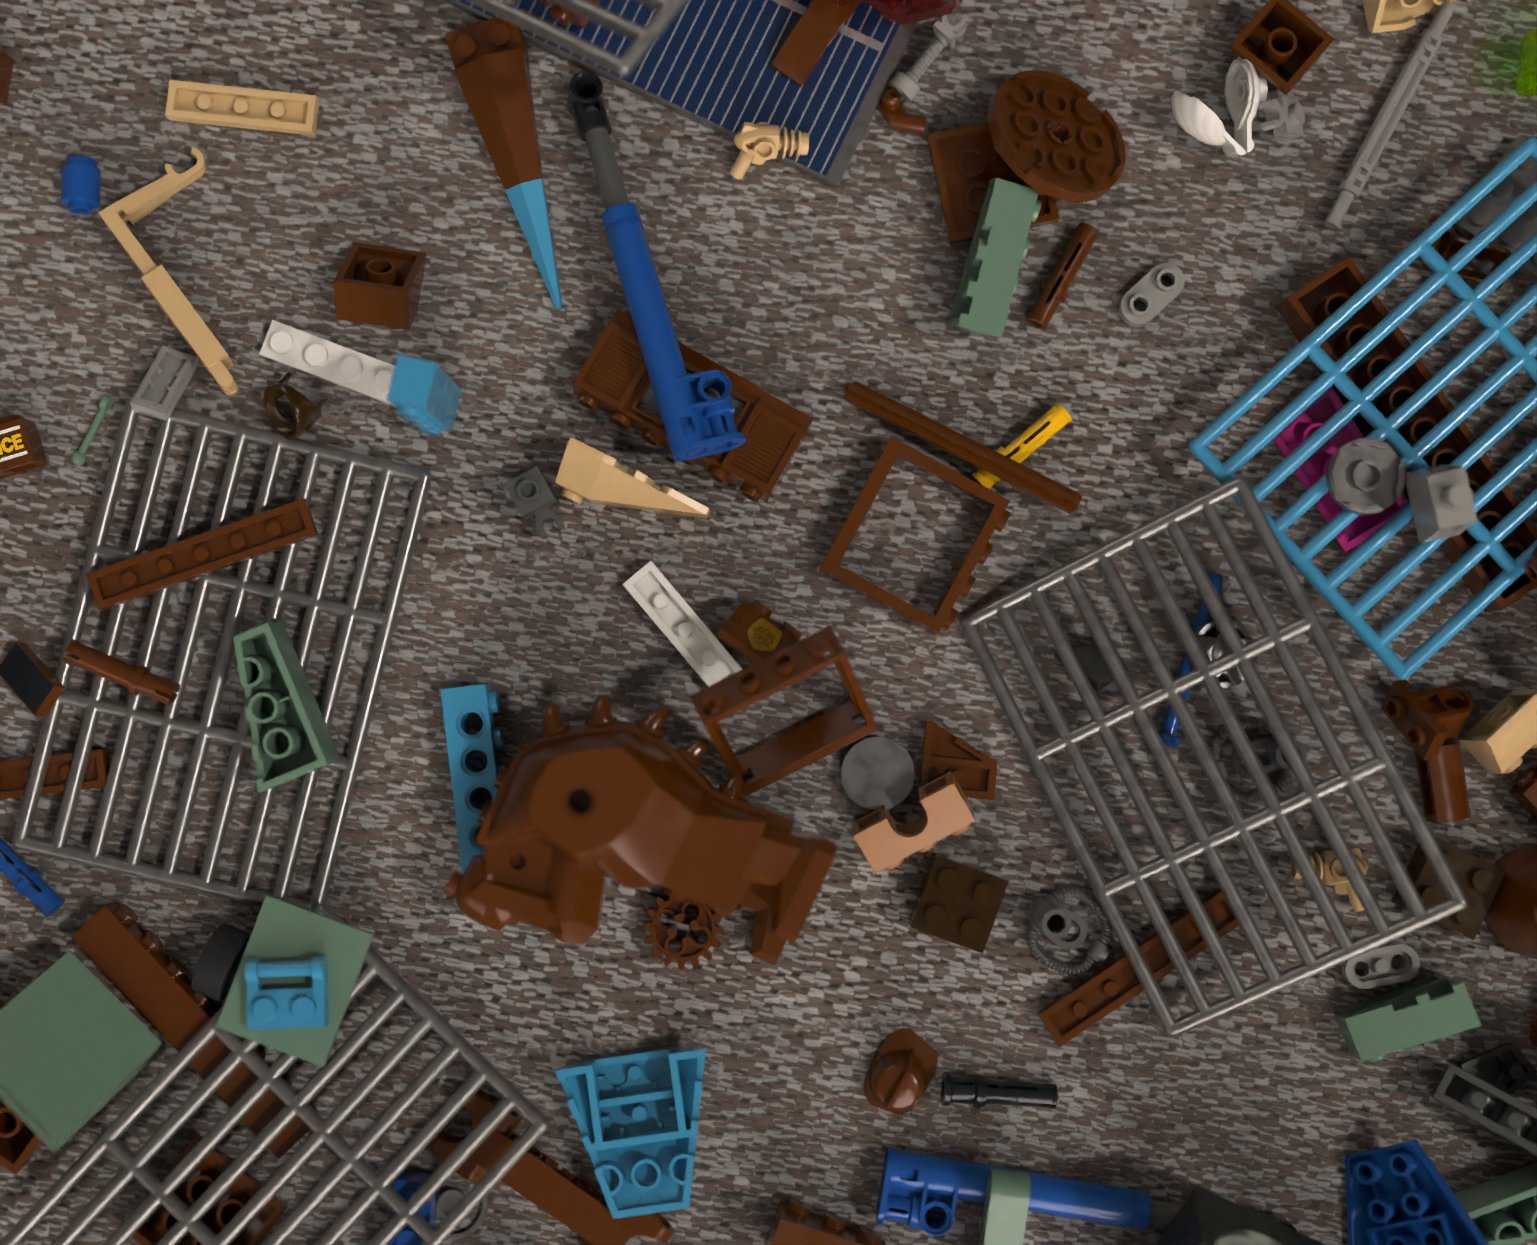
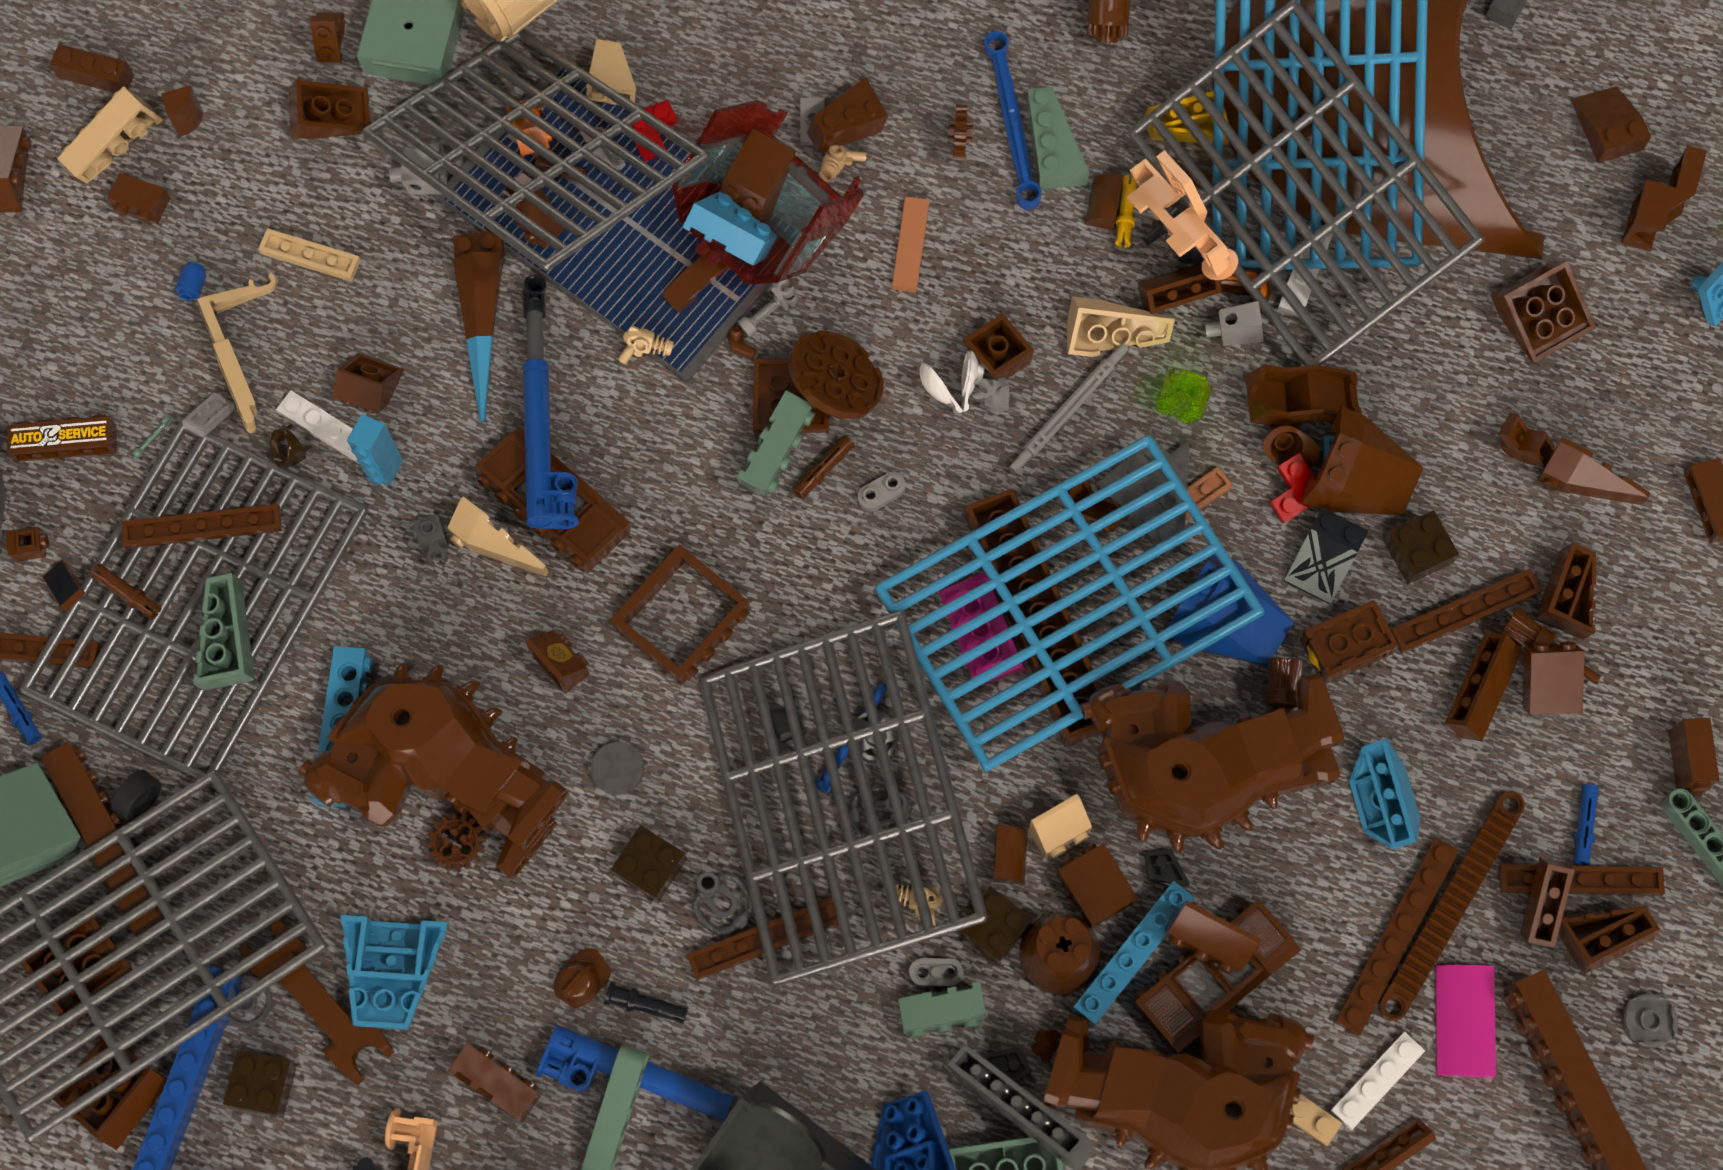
camera: 15 degrees right, 15 degrees down
(287, 1006) = (173, 827): dark azure plate -> none
(298, 934) = (182, 814): sand green piece -> none
(681, 625) = (510, 644): white plate -> none
(802, 744) = (566, 737): reddish brown window -> none
(889, 841) = (608, 809): medium nougat arch -> none
(947, 753) = (670, 774): reddish brown wing -> none
(963, 447) = (727, 561): reddish brown axle -> none
(1053, 421) = (769, 571): yellow pin -> none
(1365, 476) = (987, 628): flat silver tile -> none
(1427, 715) = (1005, 803): reddish brown pin -> none
(1440, 501) = (1029, 652): light grey torso -> none

